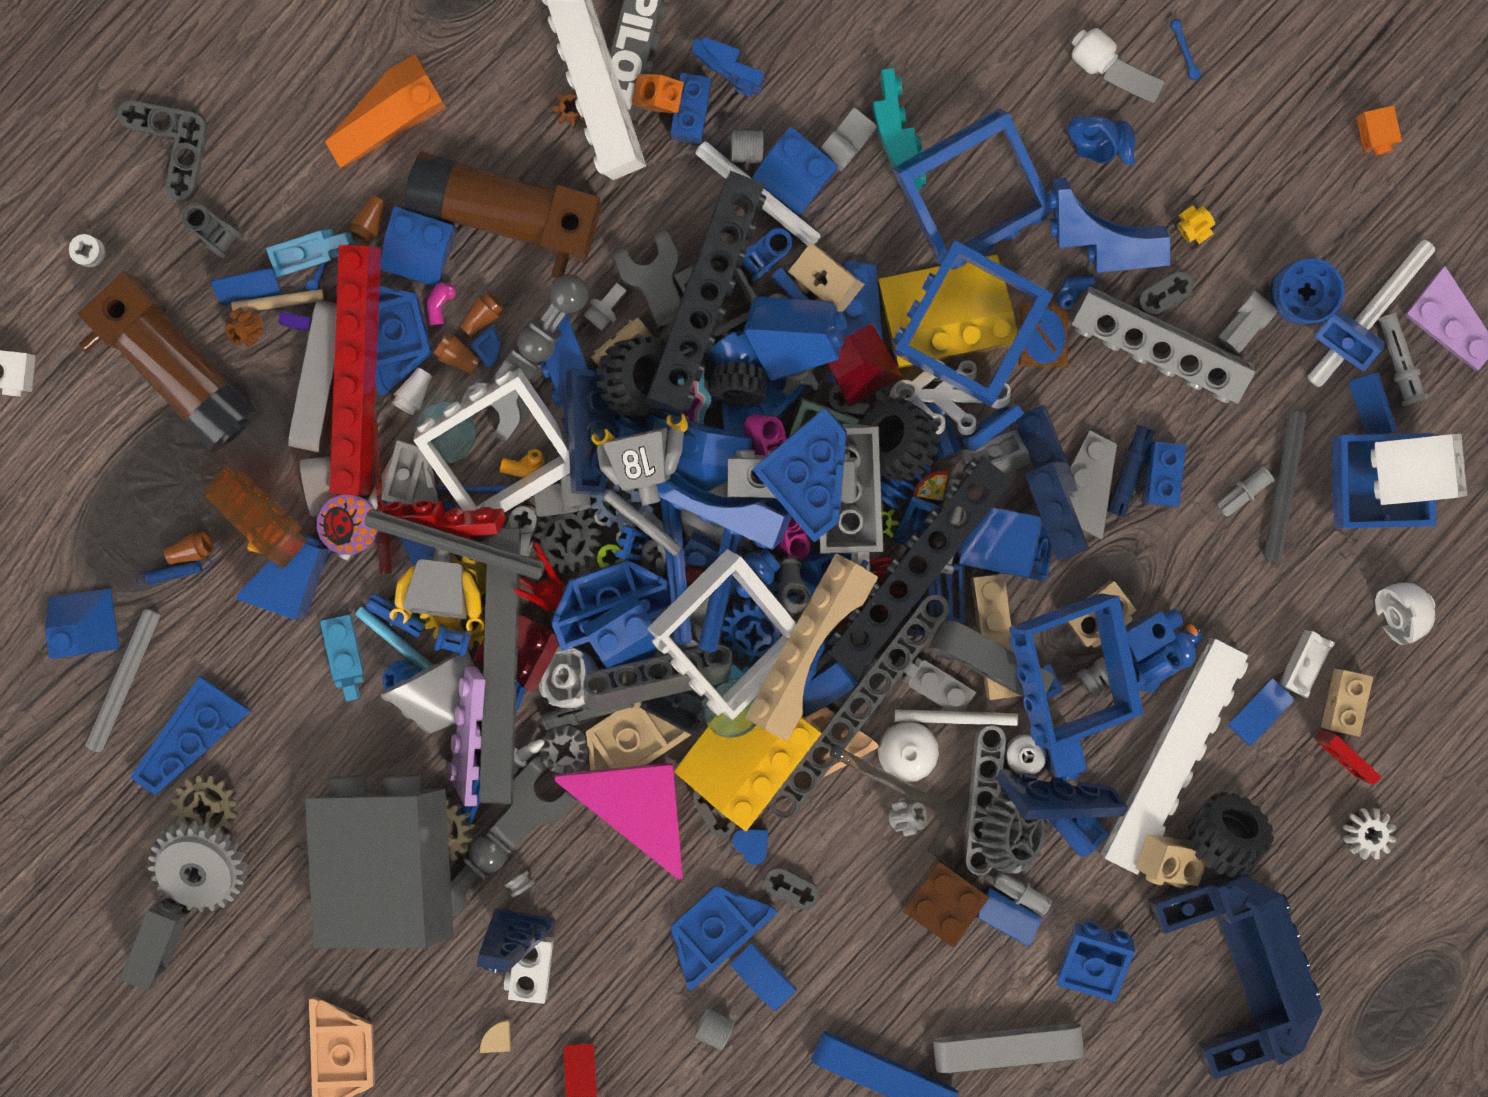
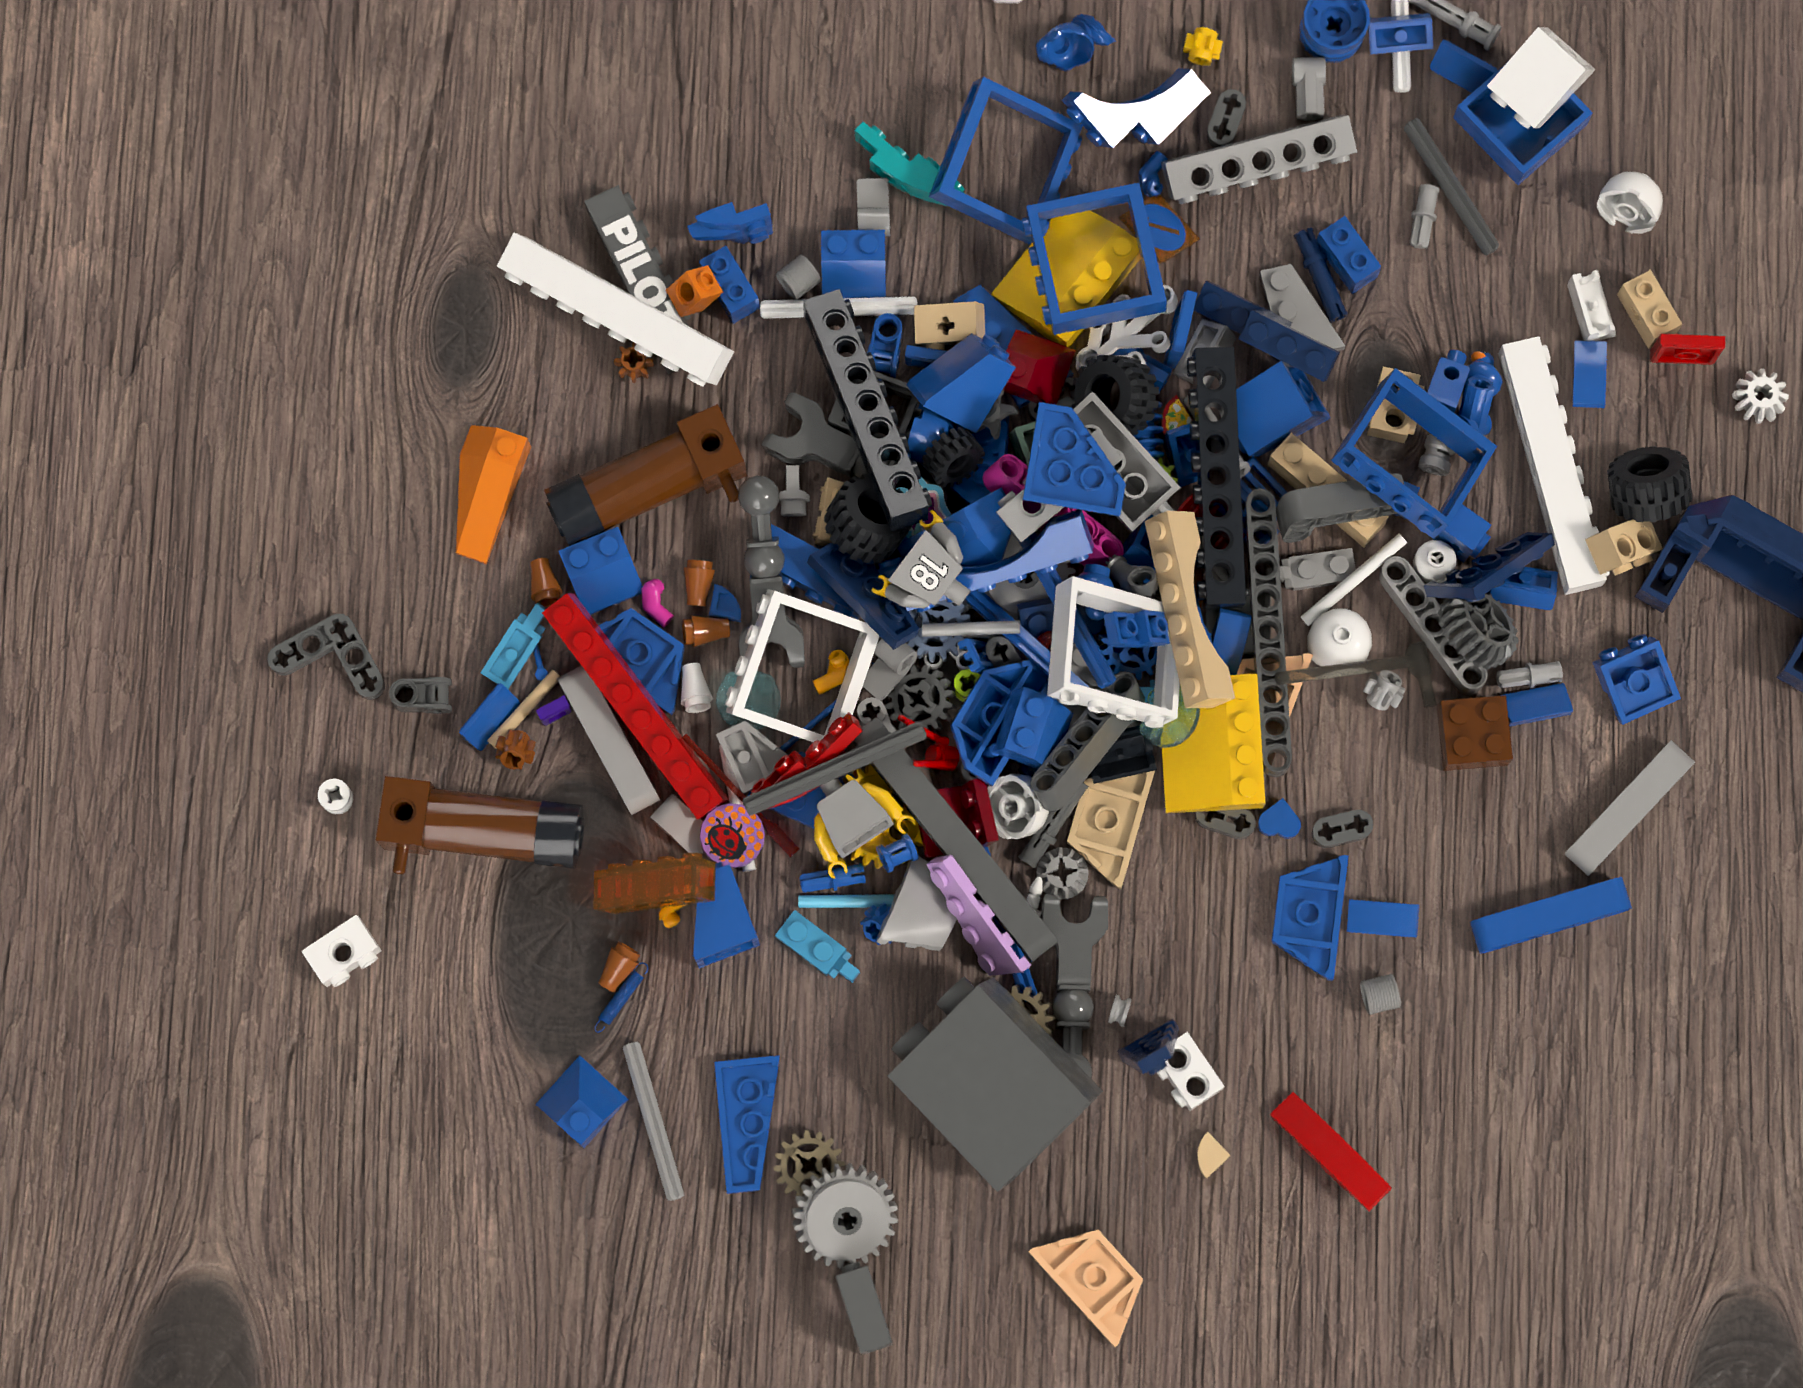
camera: 40 degrees left, 10 degrees down
(636, 804) = (1160, 864): dark pink tile -> none
(757, 632) = (1136, 629): none -> blue slope

